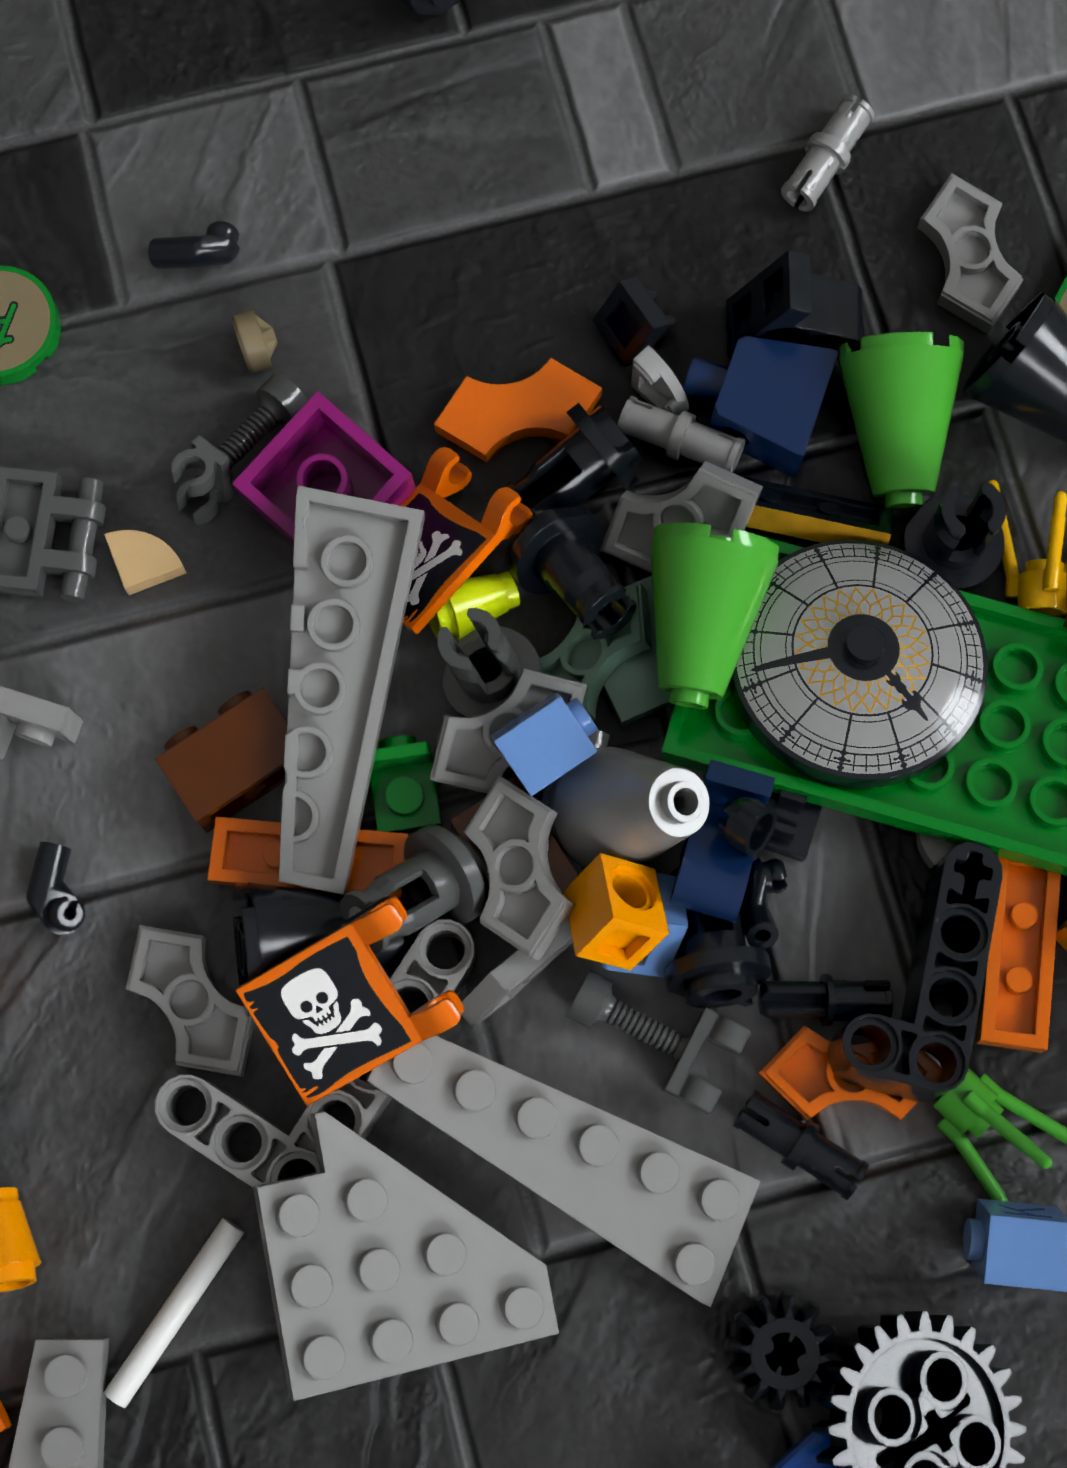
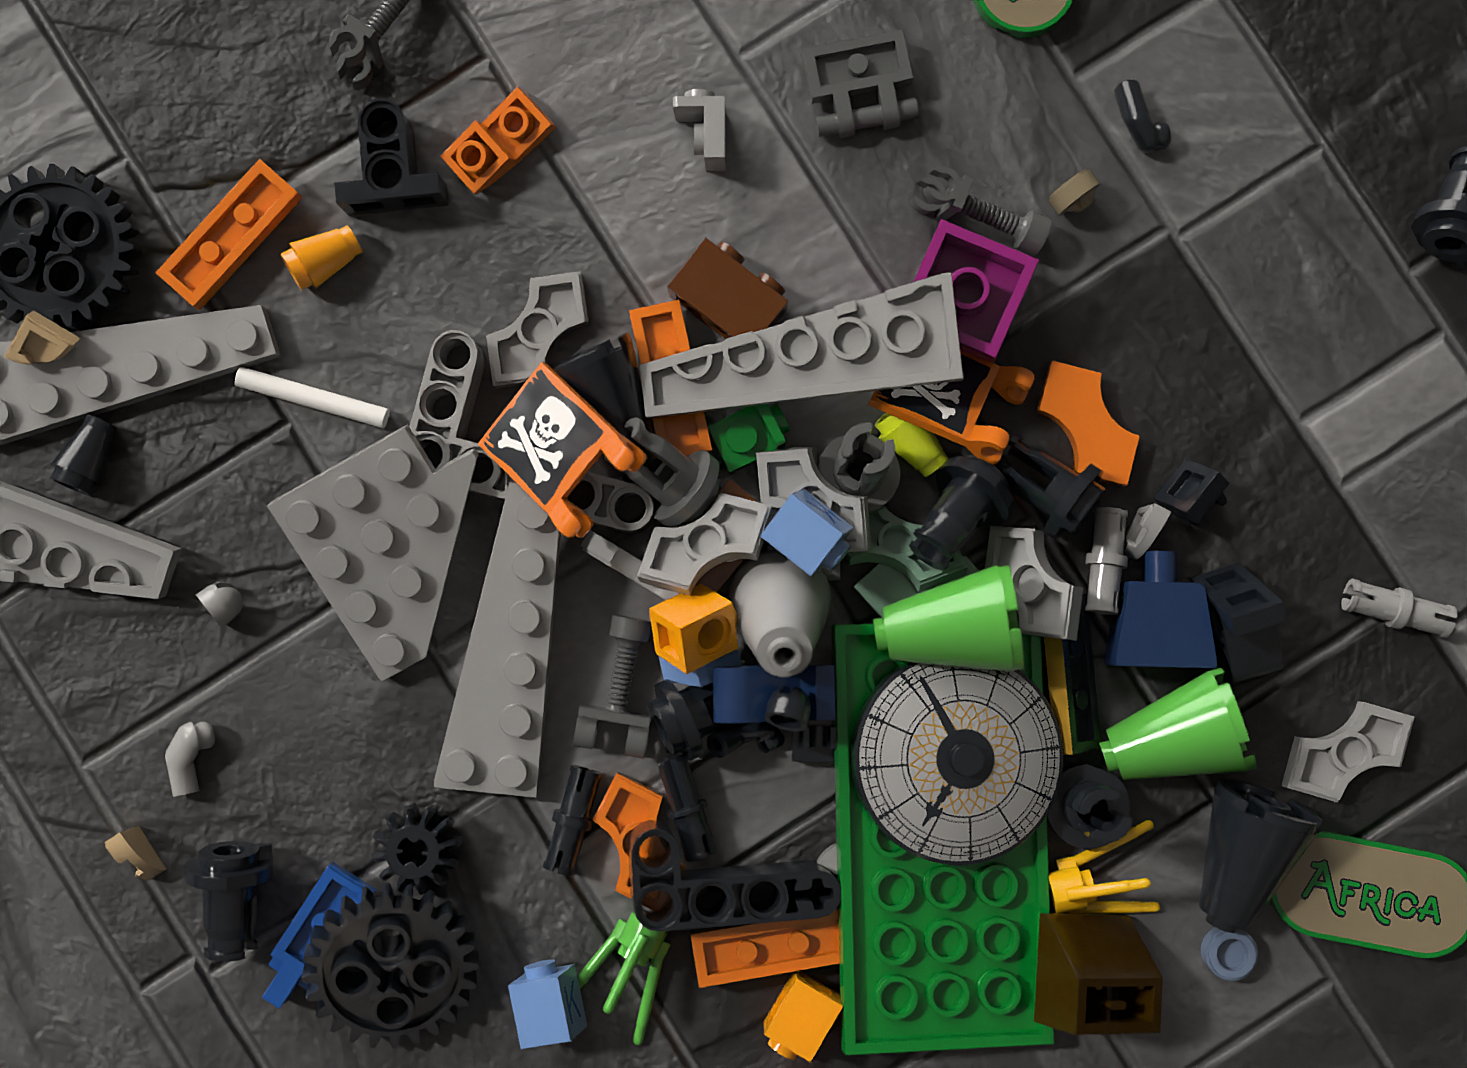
camera: 70 degrees right, 10 degrees up
(49, 894) = (583, 195): black arm -> none
(142, 559) = (866, 170): tan tile -> none

